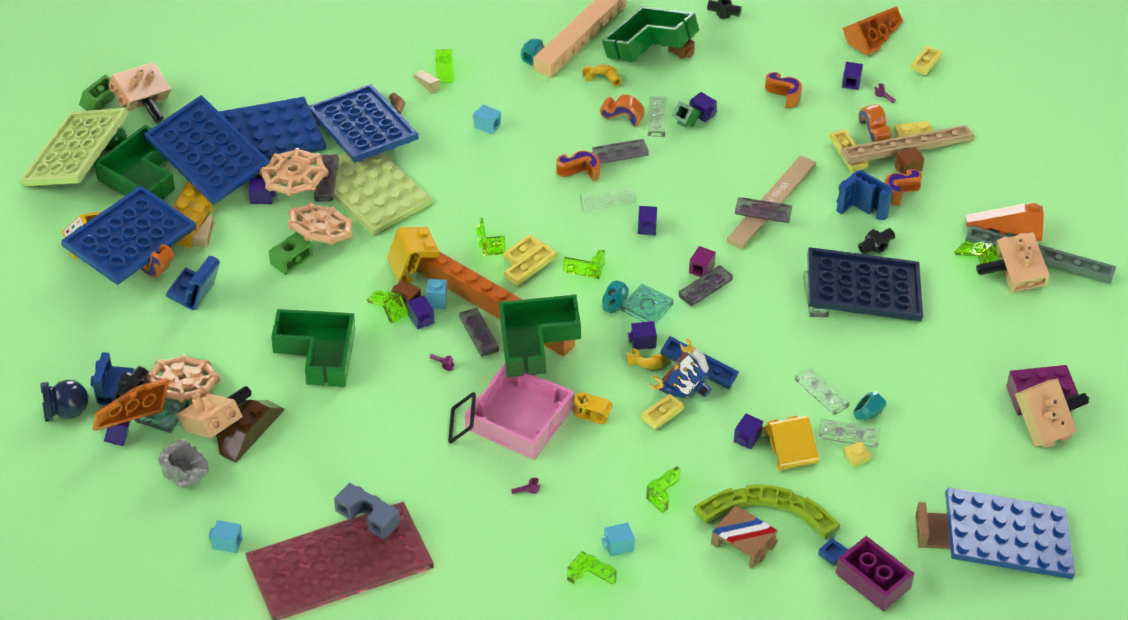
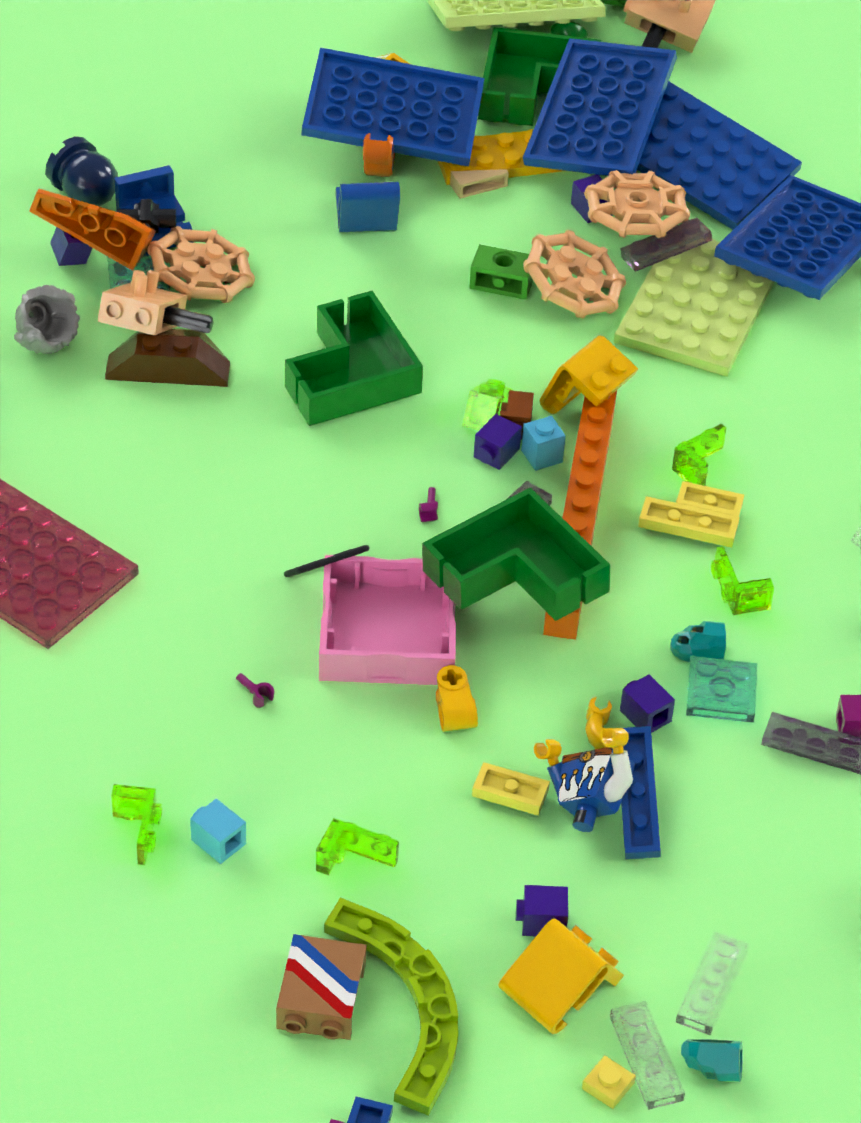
camera: 60 degrees right, 0 degrees up
(354, 501) = (79, 545): sand blue arch -> none

